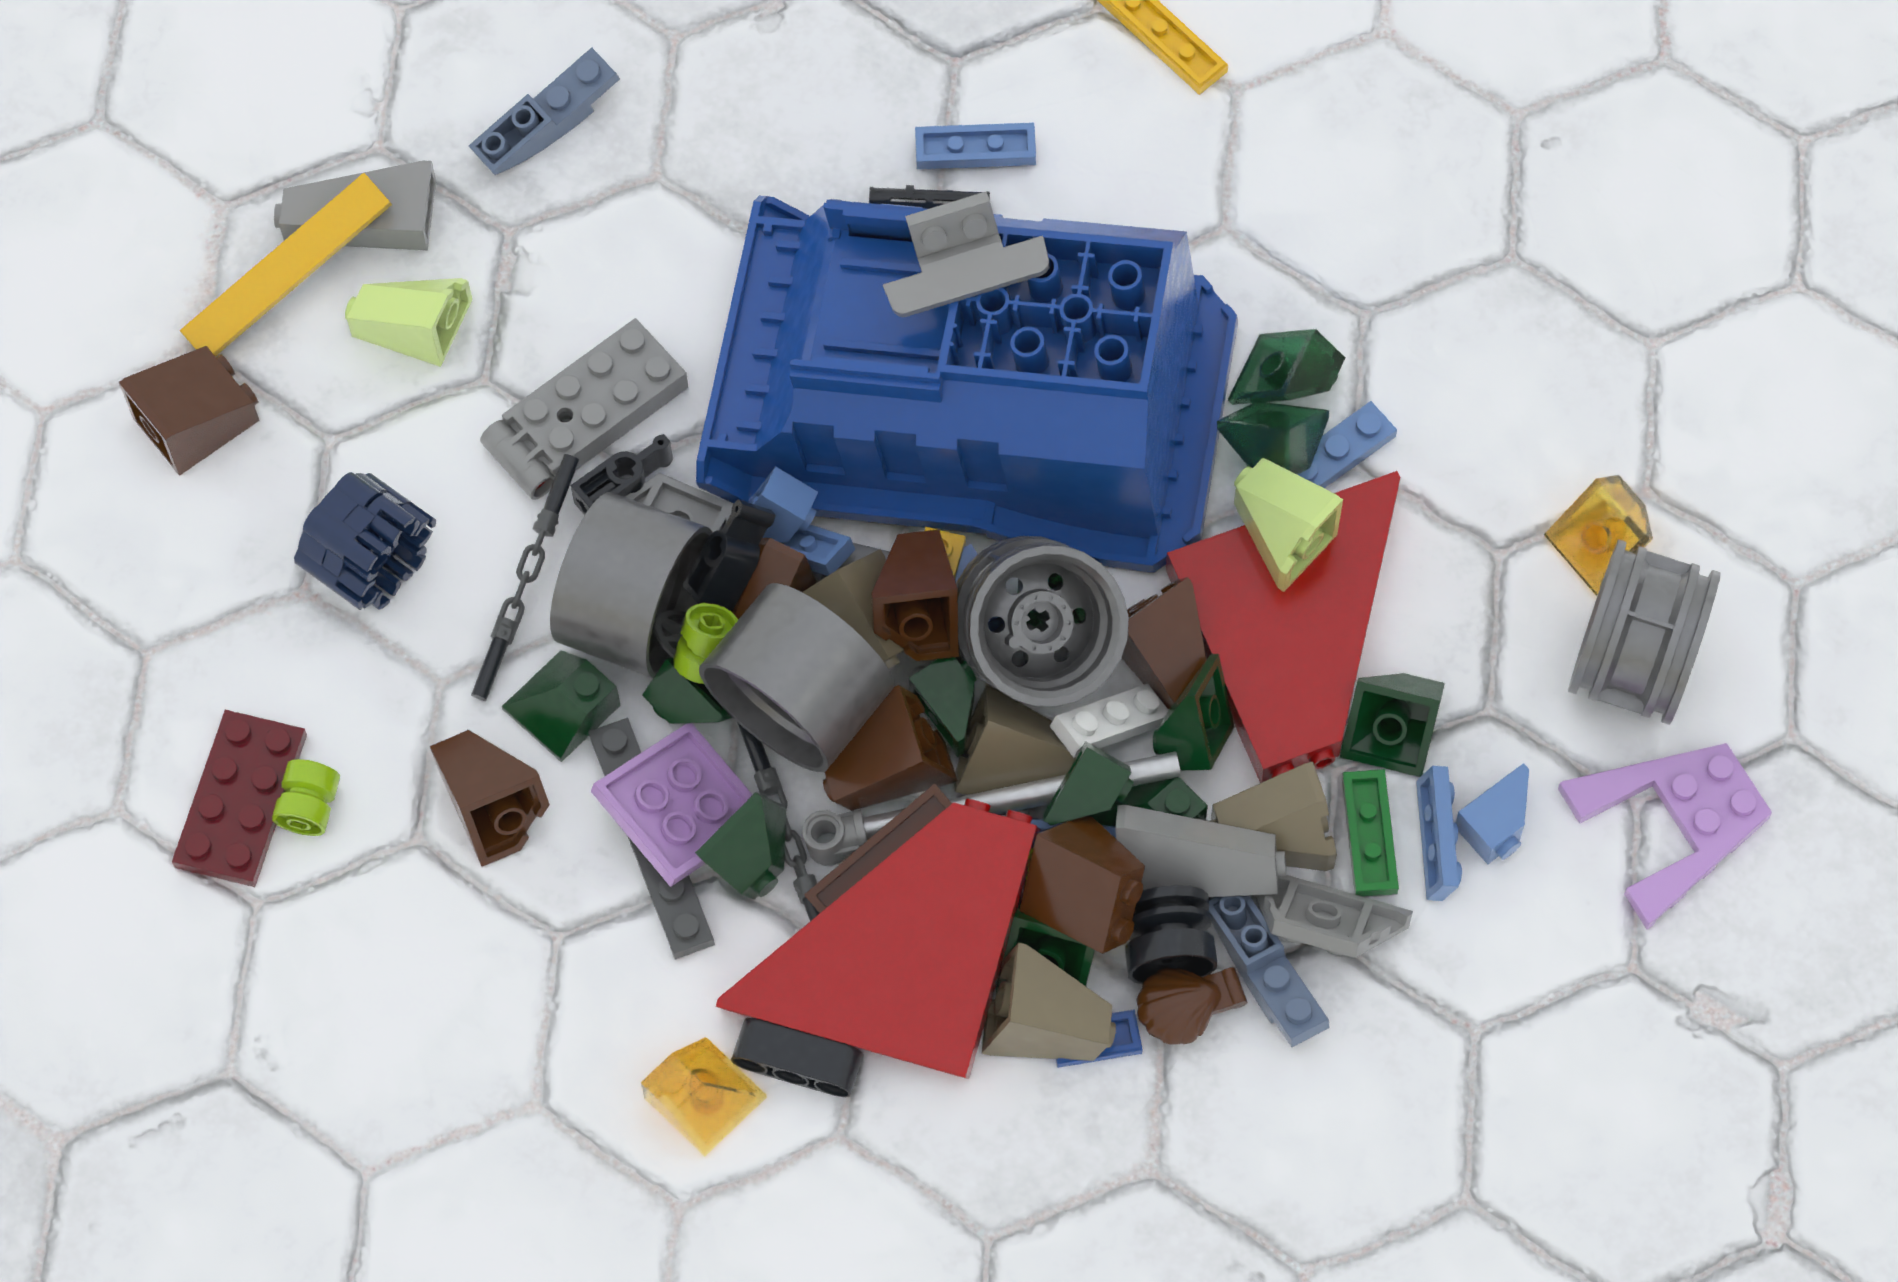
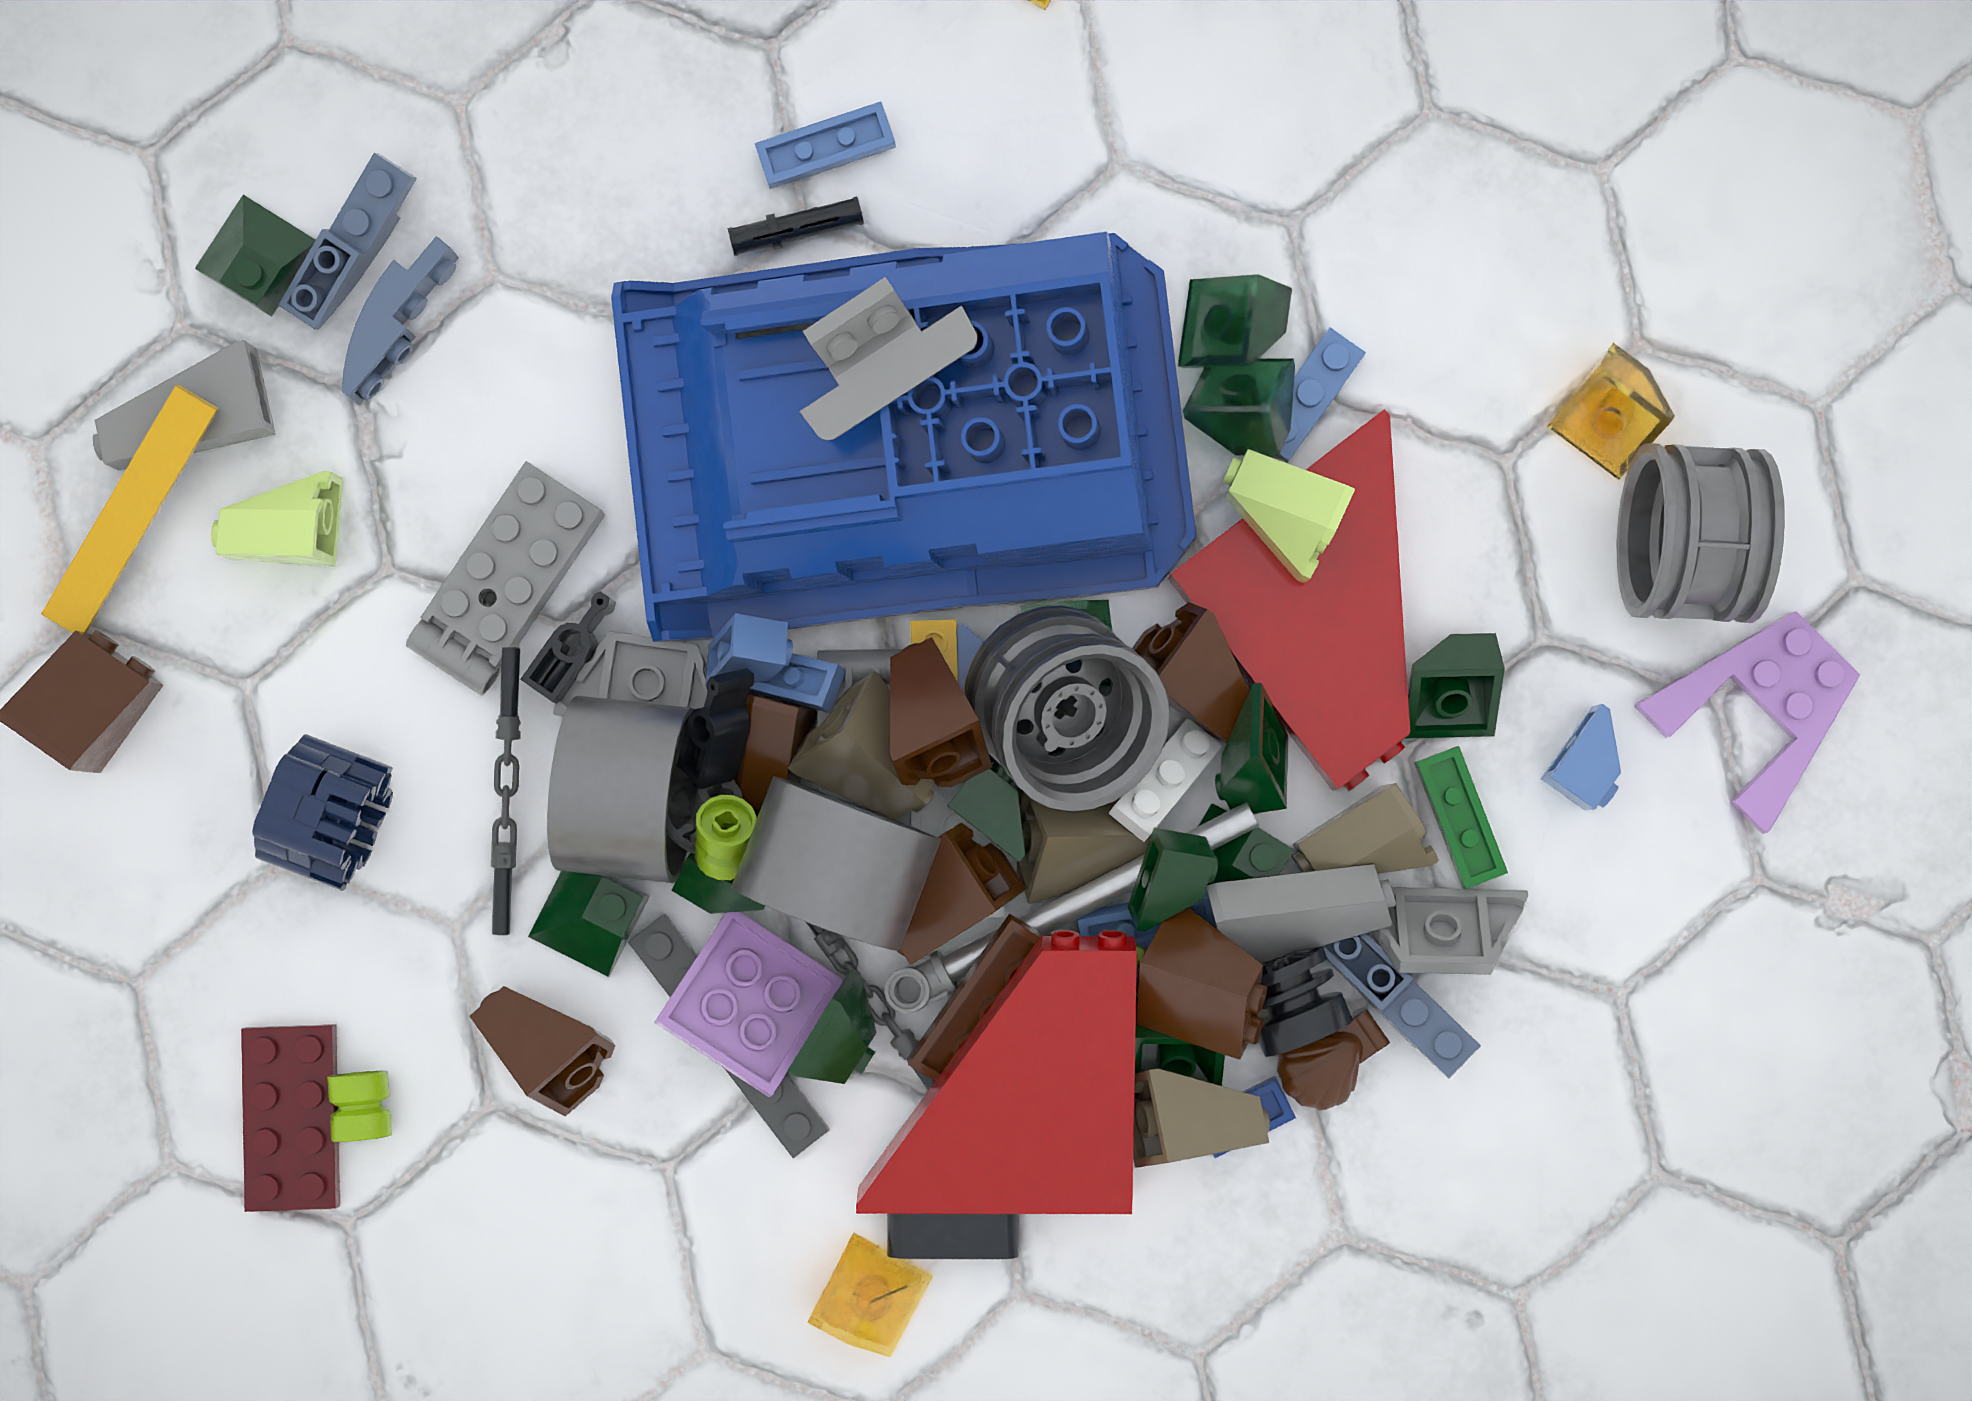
camera: 20 degrees left, 20 degrees up
(460, 107) = (256, 255): none -> dark green slope
(549, 185) = (379, 331): none -> sand blue slope
(1438, 833) = (1531, 799): medium blue plate -> none

